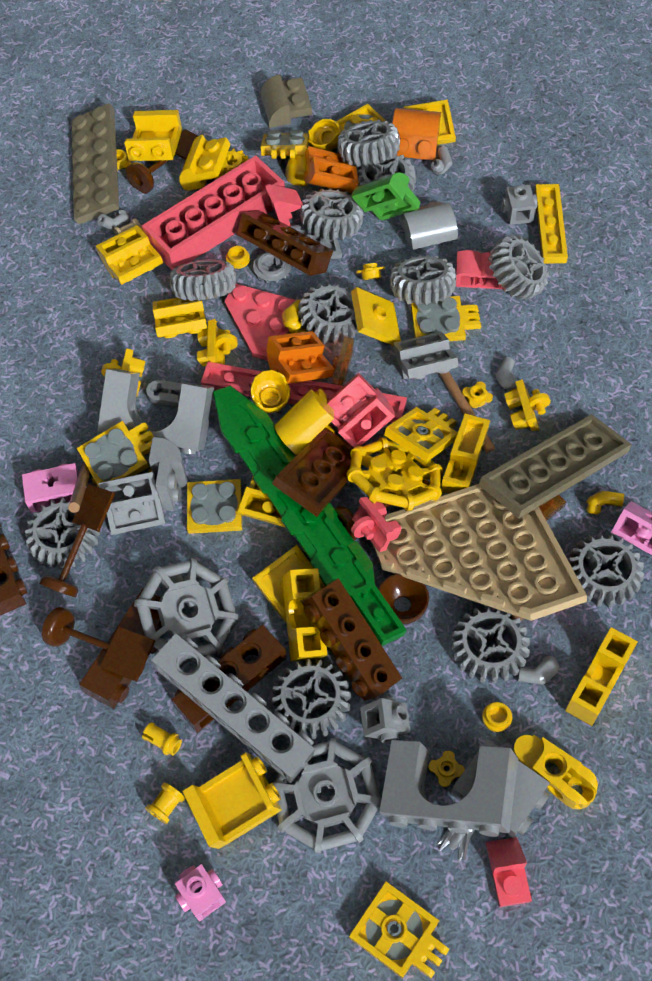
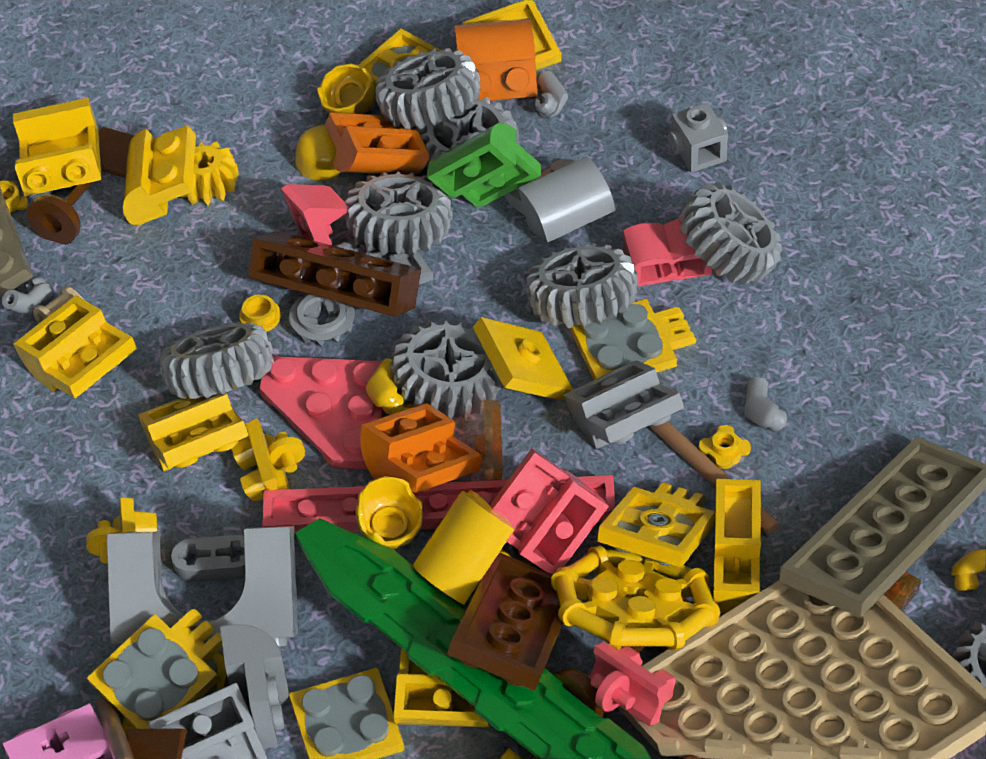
camera: 15 degrees left, 10 degrees down
(211, 213) = (196, 252): coral brick -> none
(284, 100) = (260, 49): dark tan brick -> none
(284, 144) = (285, 118): piece -> none
(370, 271) = (490, 290): yellow plate -> none
(521, 397) = (815, 463): yellow hips -> none
(551, 224) = (757, 157): yellow plate -> none

